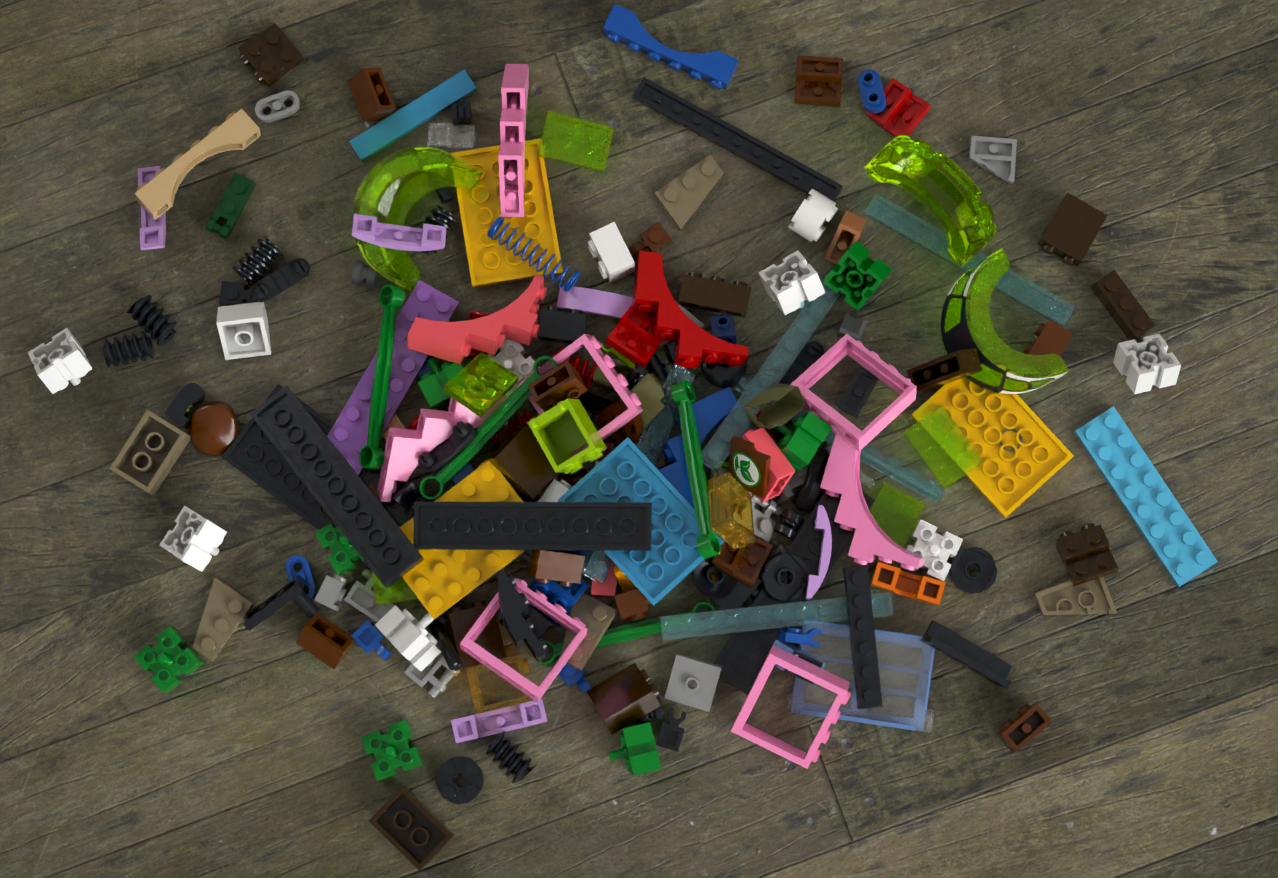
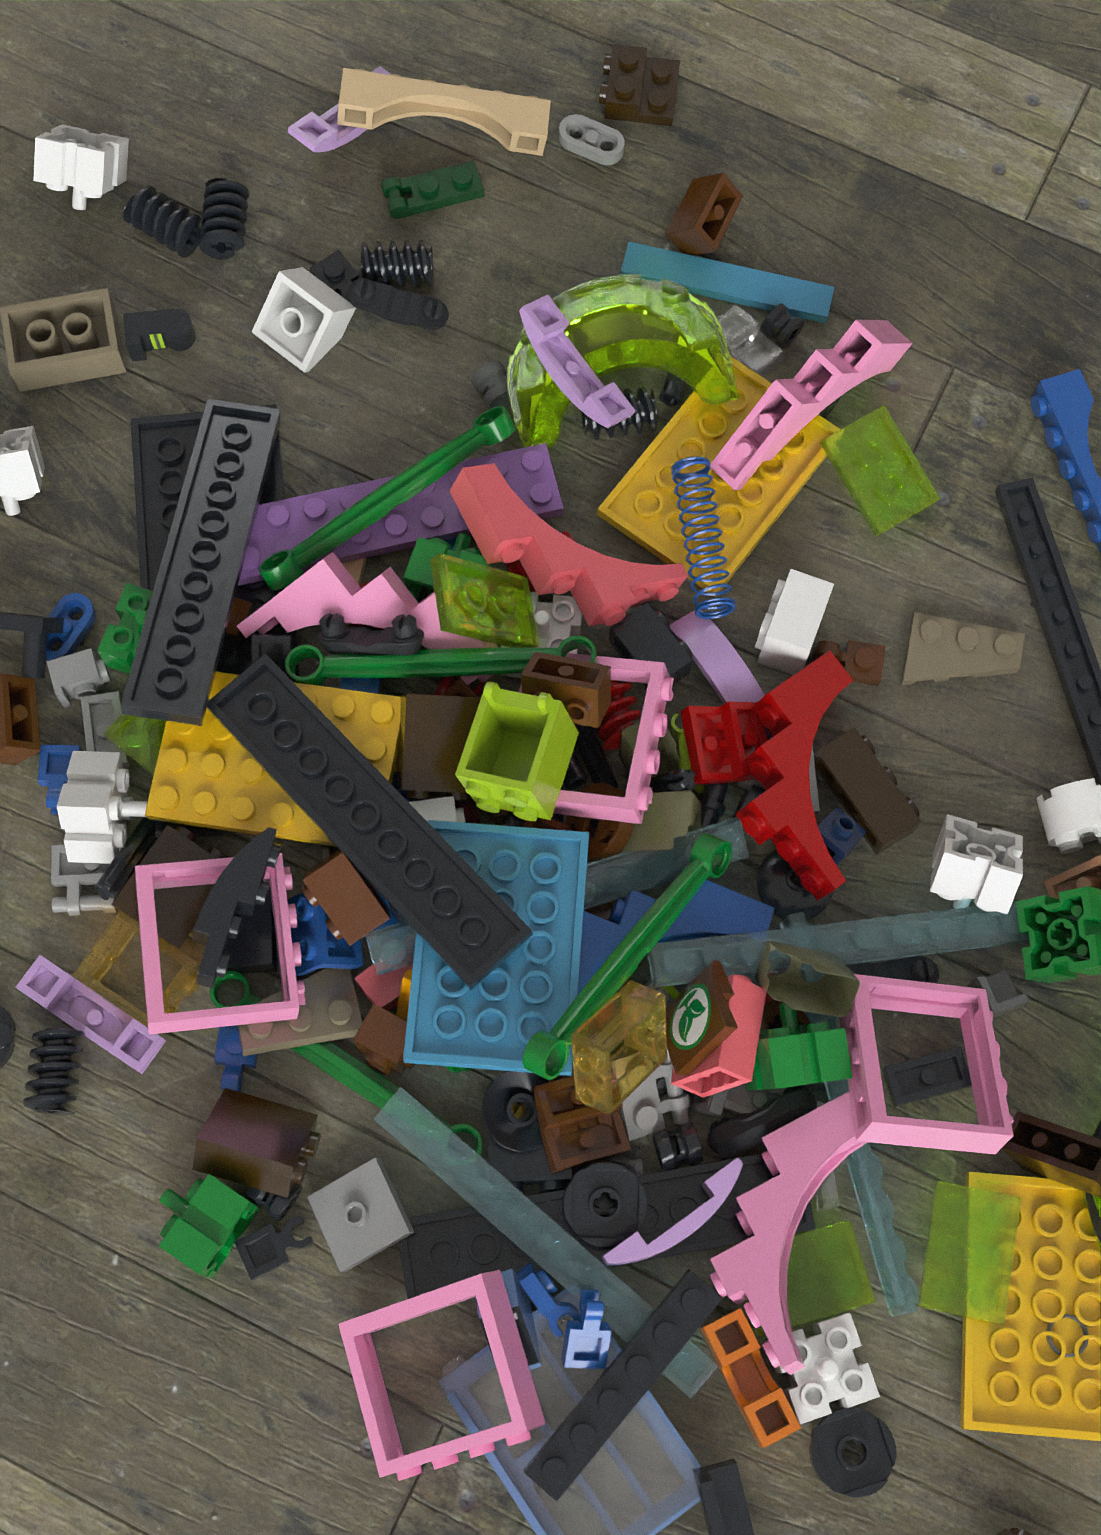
camera: 45 degrees right, 10 degrees down
(213, 428) = (158, 382): reddish brown piece -> none
(832, 634) = (589, 1339): none -> plate

